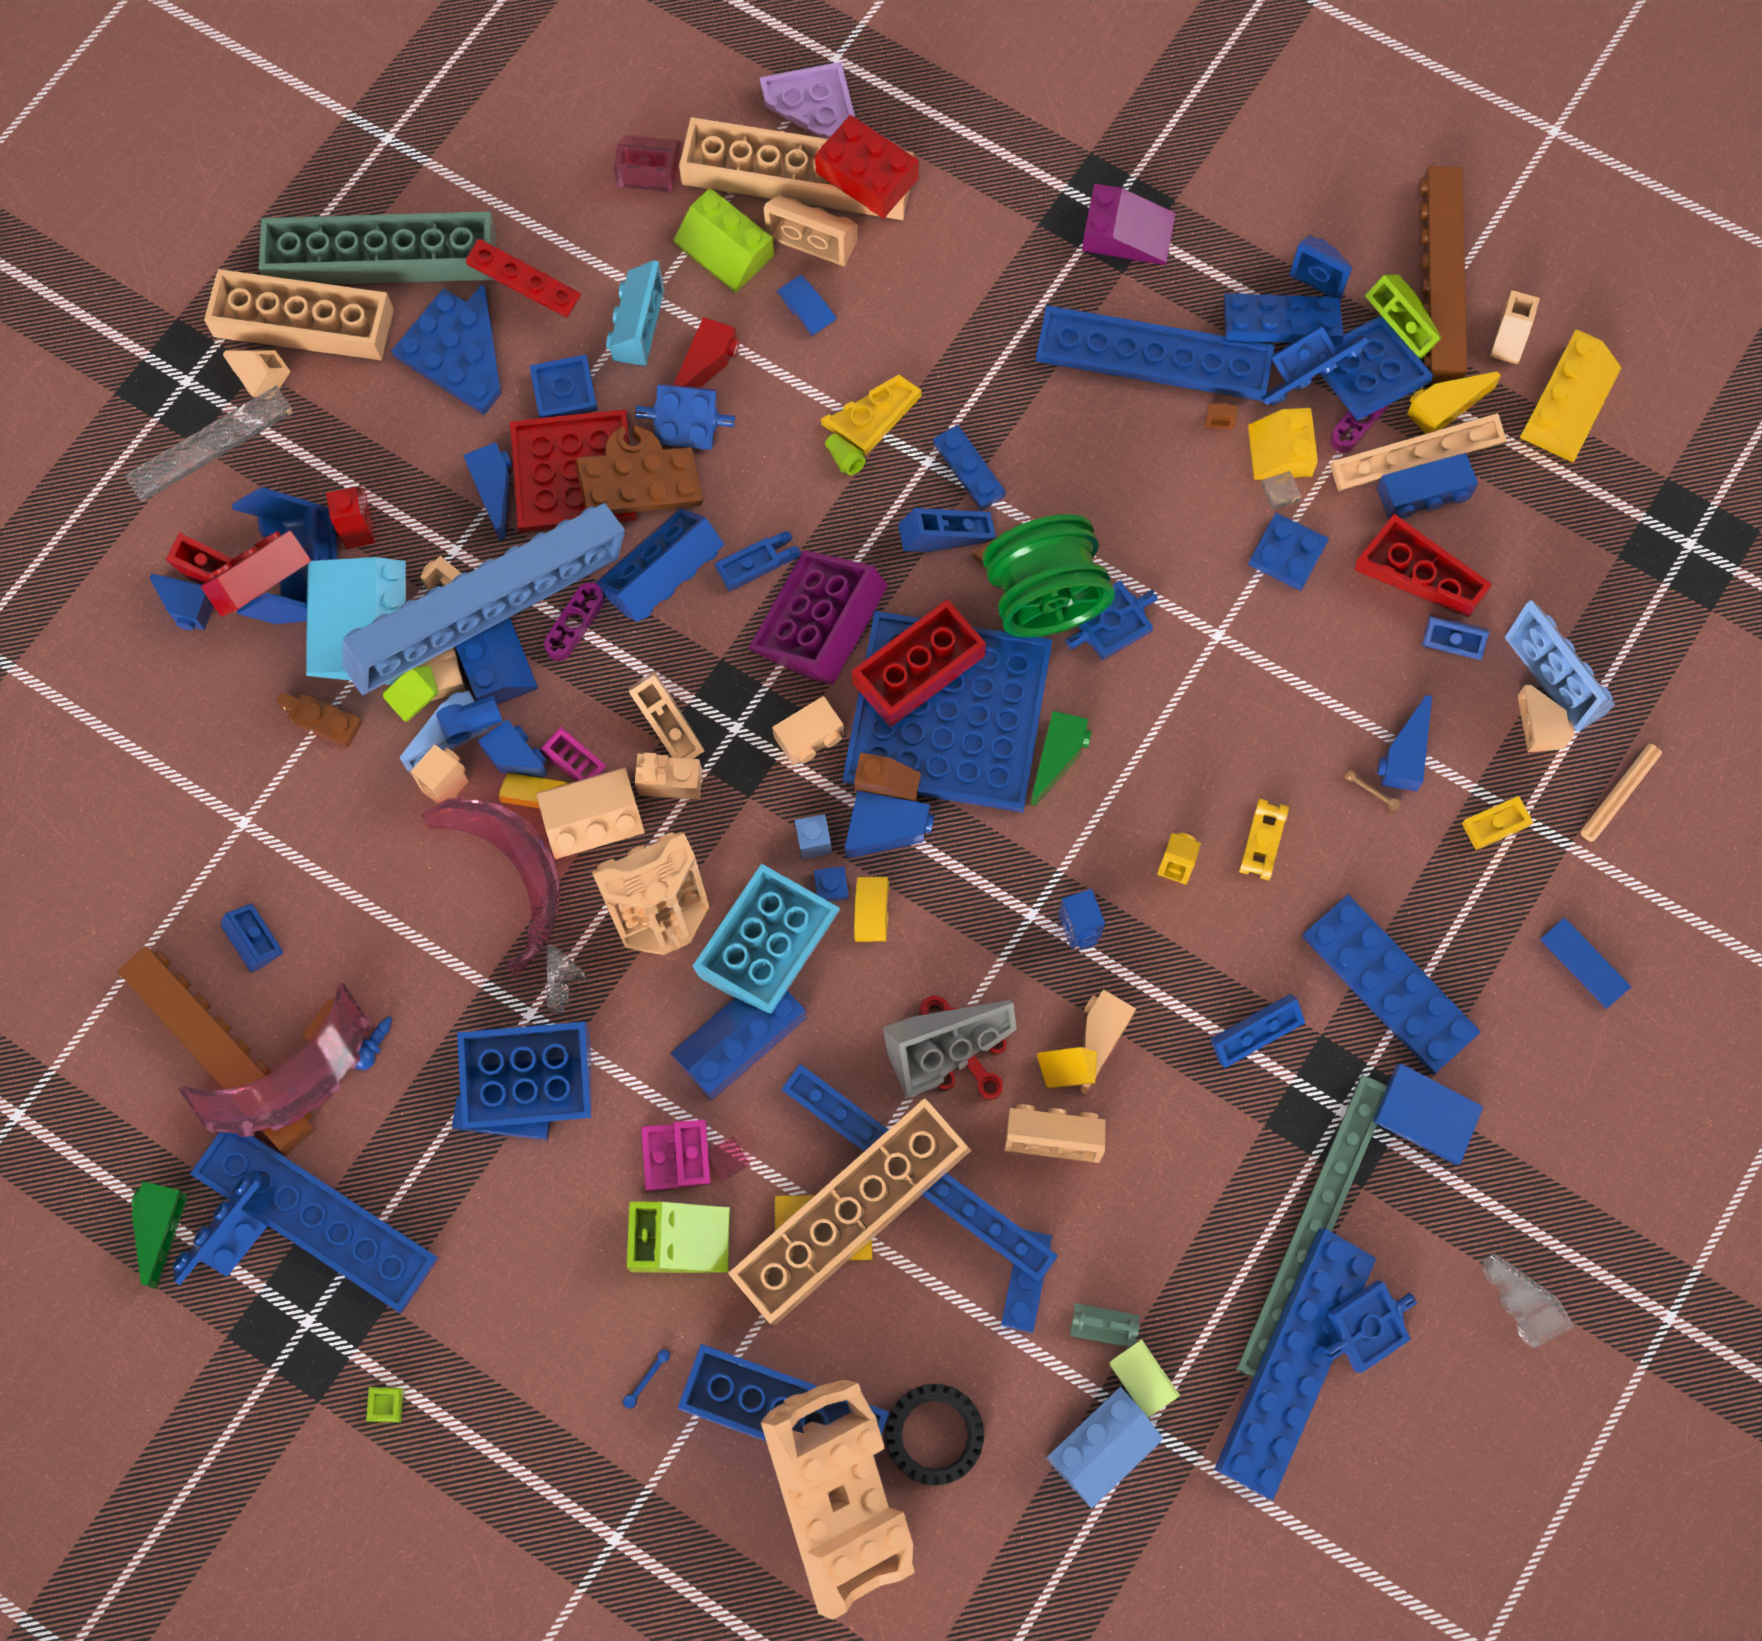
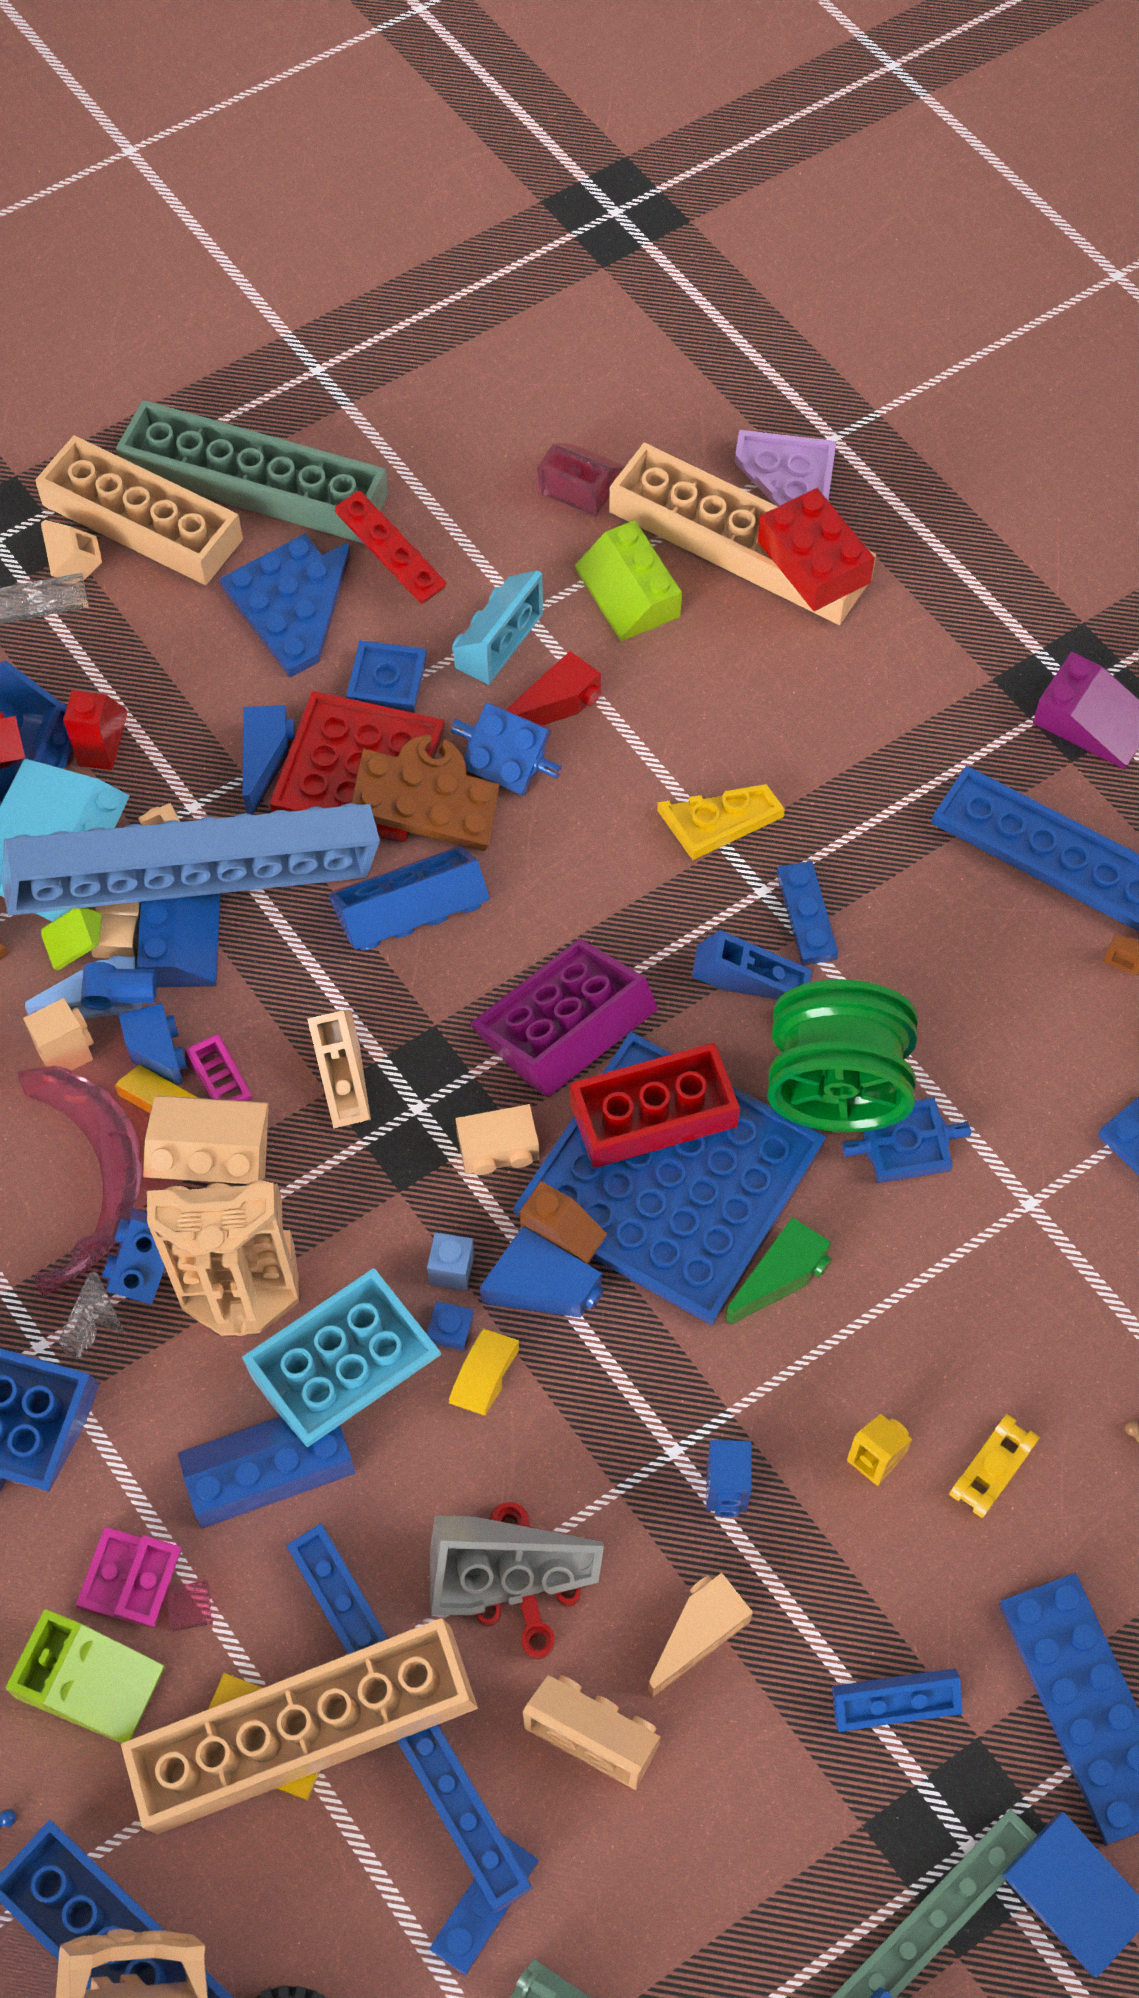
camera: 20 degrees right, 10 degrees down
(578, 599) = (291, 911): magenta beam -> none
(580, 919) = (137, 1264): none -> blue brick
(668, 776) = (313, 1132): light nougat hinge -> none
(755, 560) = (520, 930): blue hinge -> none
(807, 304) = (693, 678): blue slope -> none
(810, 229) = (729, 600): light nougat slope -> none
(847, 457) = (670, 852): lime cone -> none
(1068, 1067) = (641, 1652): yellow slope -> none

